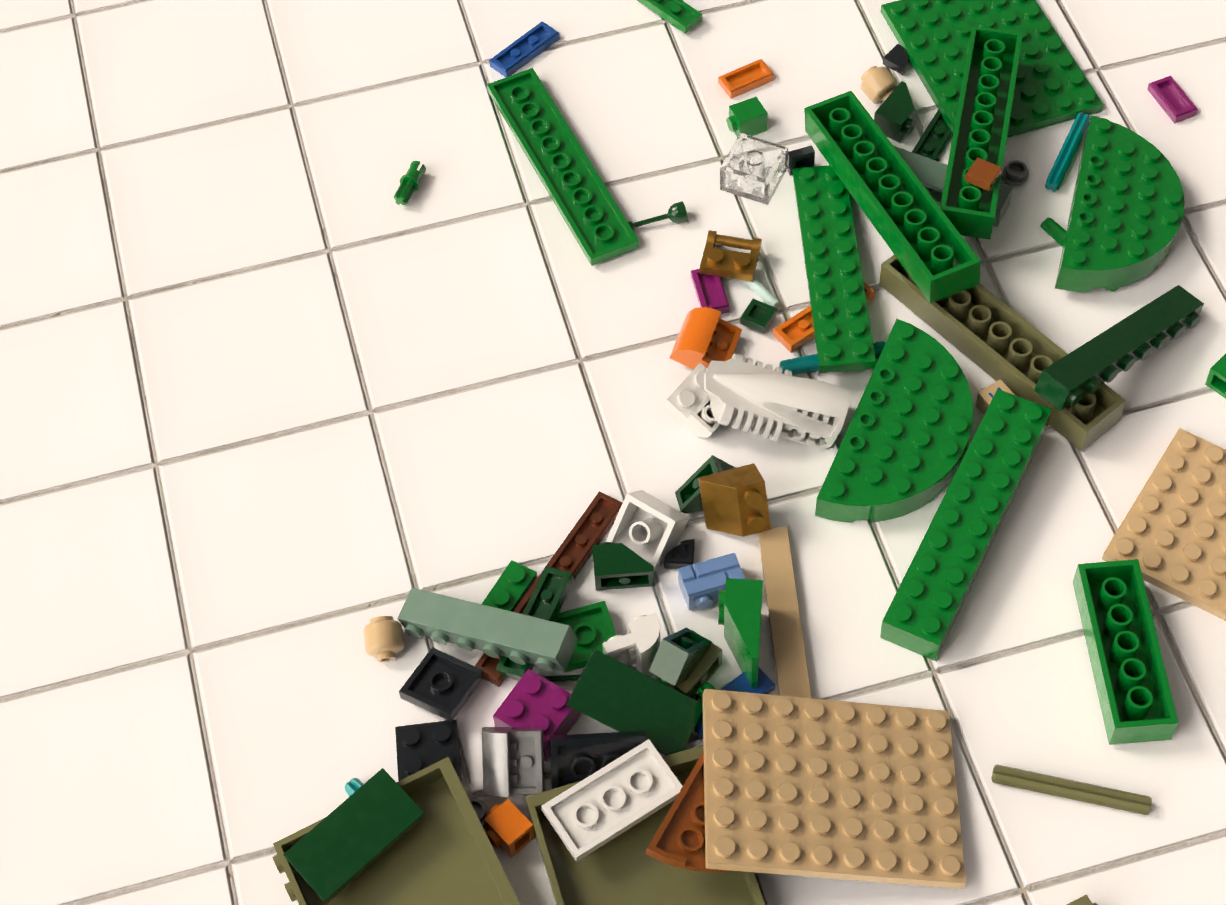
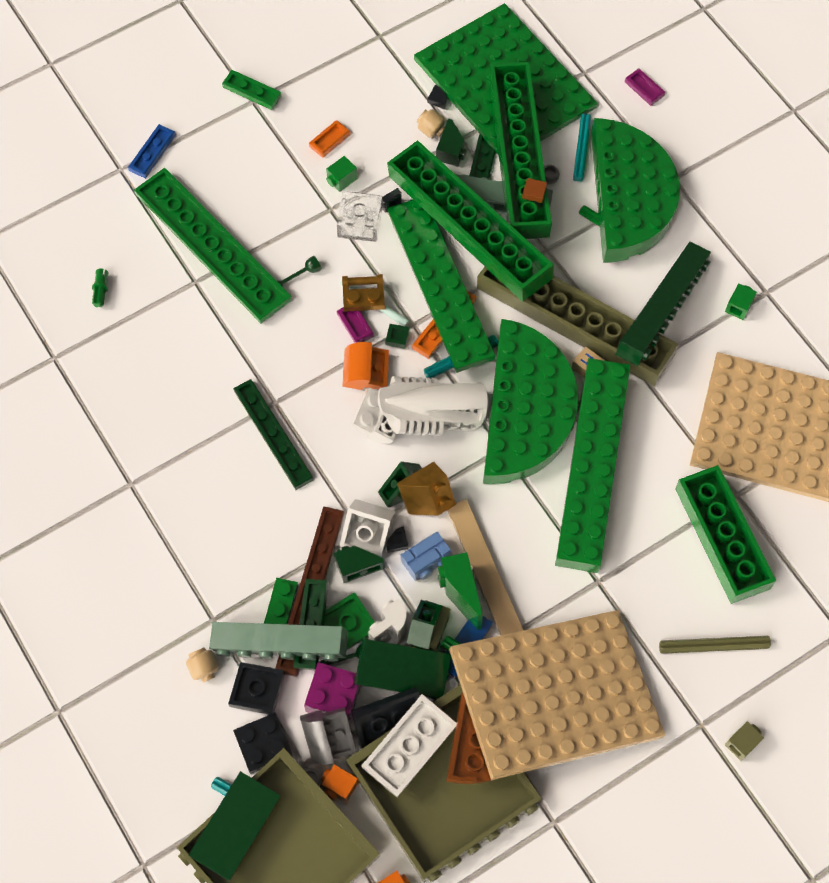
camera: 20 degrees left, 10 degrees up
(564, 395) = (273, 434): none -> dark green tile

